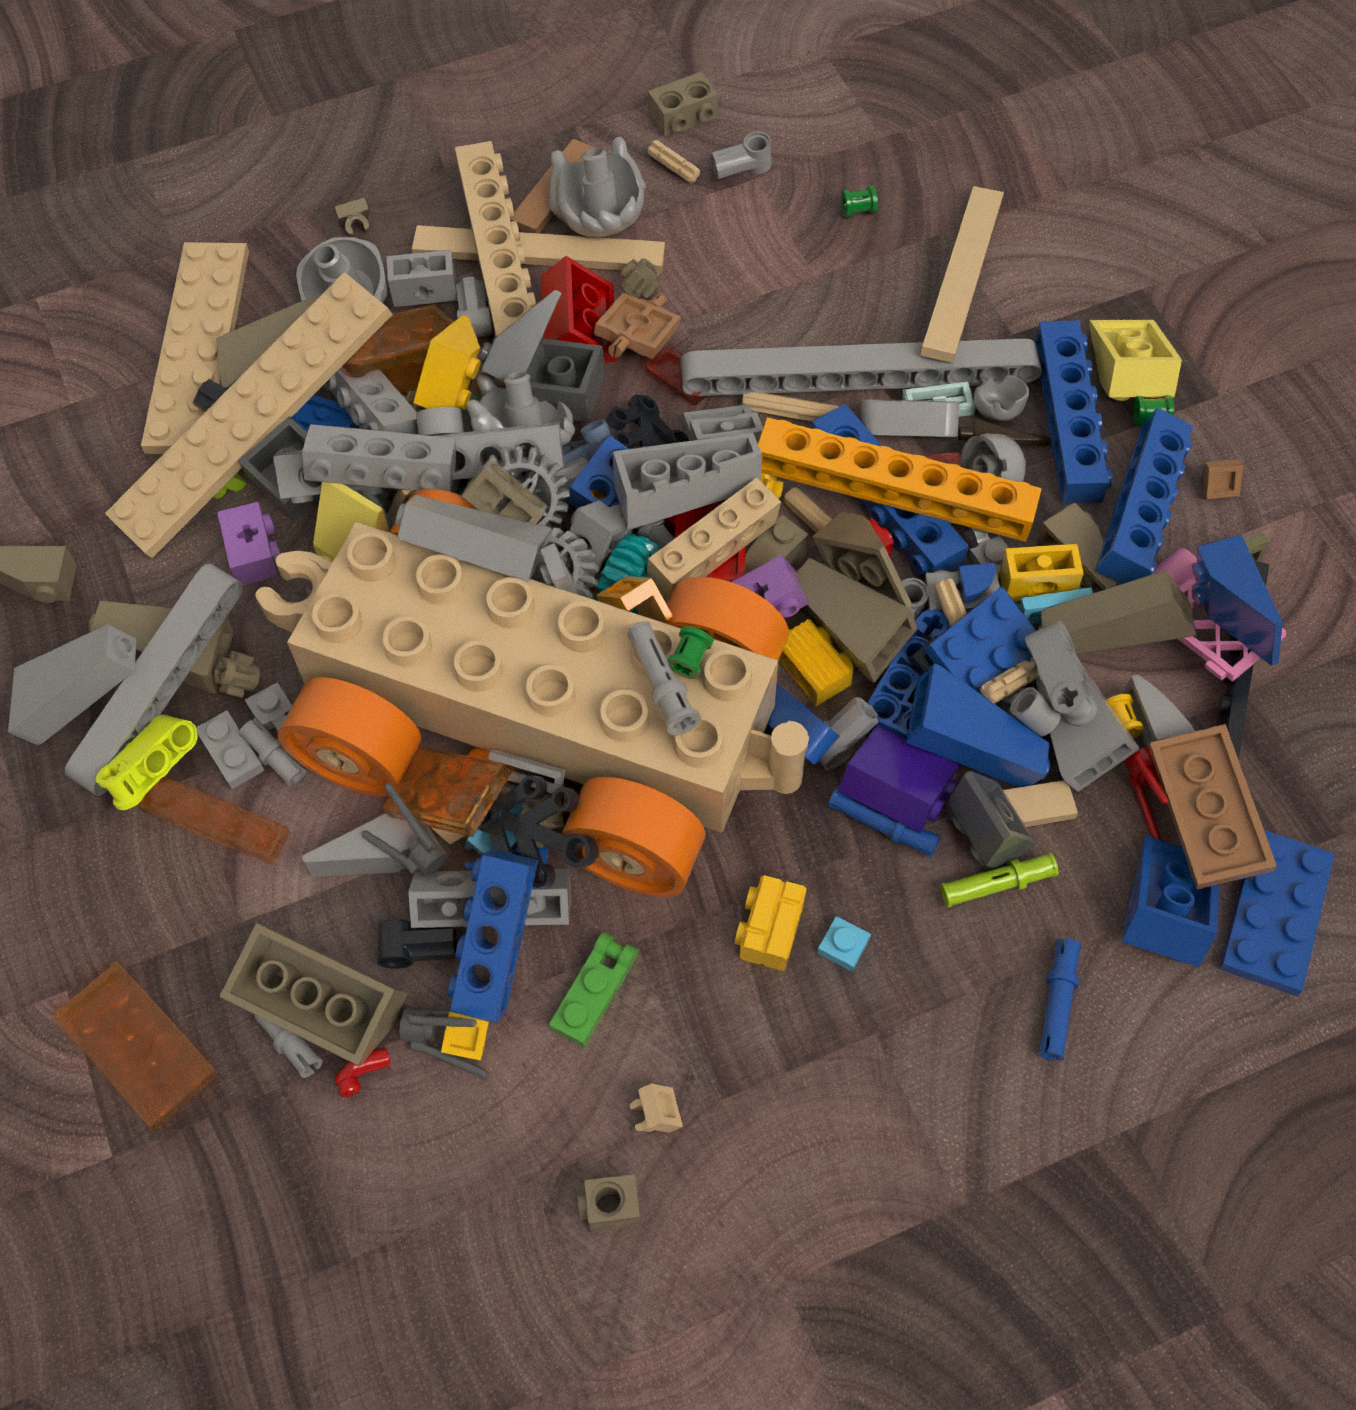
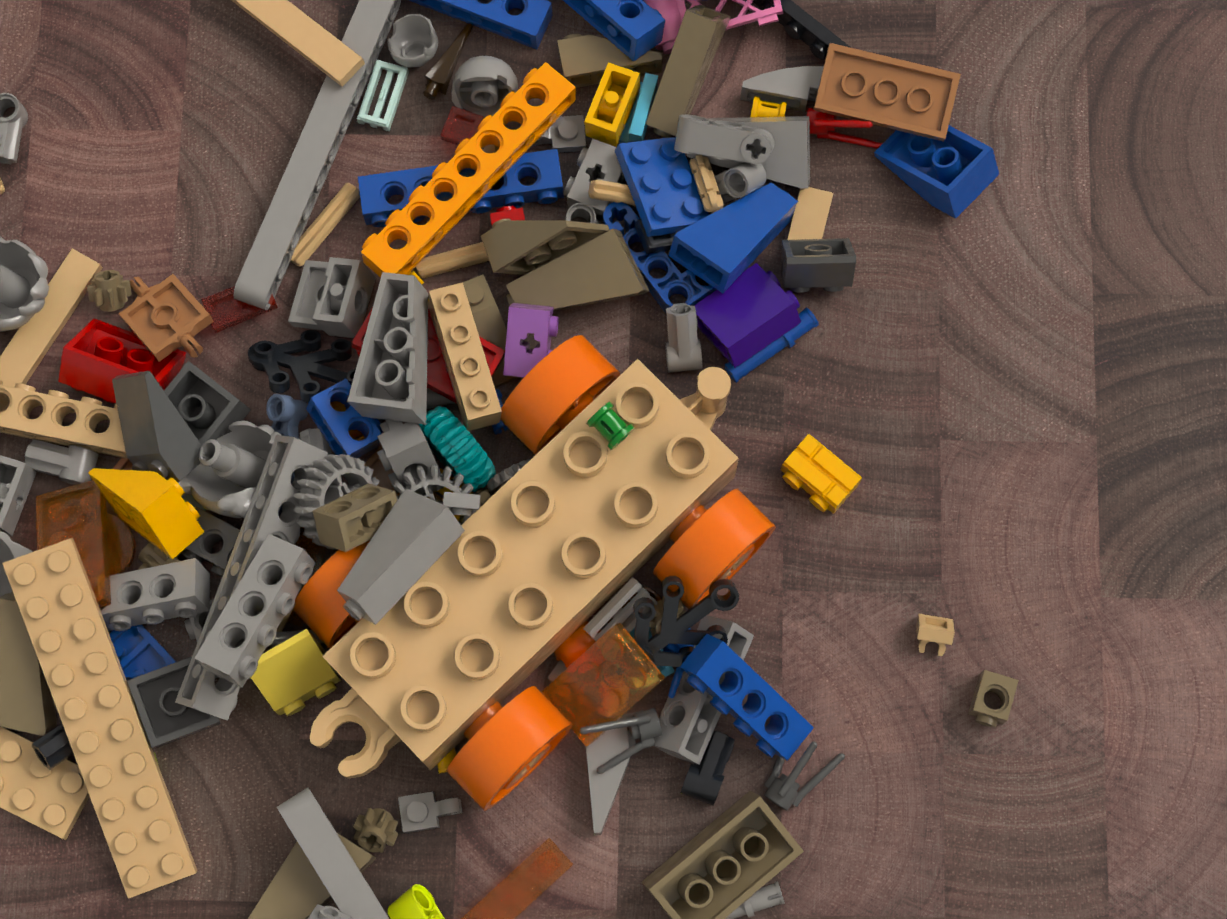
camera: 65 degrees left, 15 degrees up
(229, 749) = (444, 863): light grey plate -> none
(248, 543) = (213, 765): medium lavender brick -> none
(272, 752) = (469, 825): light grey pin -> none
(348, 1076) = (800, 866): red arm -> none
(439, 421) = (216, 543): light grey piece -> none
(465, 1041) = (816, 762): yellow plate -> none
(593, 990) = (811, 640): bright green plate -> none
(637, 593) = (504, 450): light orange panel -> none
(668, 691) = (644, 459): light grey pin -> none
(789, 708) = (674, 366): blue beam -> none
(815, 663) = (606, 328): yellow brick -> none
(844, 944) = (859, 427): medium azure plate -> none
(859, 201) = (115, 58): green bush -> none
(910, 417) = (395, 128): light grey beam -> none
(975, 580) = (598, 160): blue tile -> none
(1014, 875) = (861, 288): lime pin -> none
(1059, 1001) = (977, 288): blue pin -> none
(1279, 917) = (986, 96): blue plate -> none

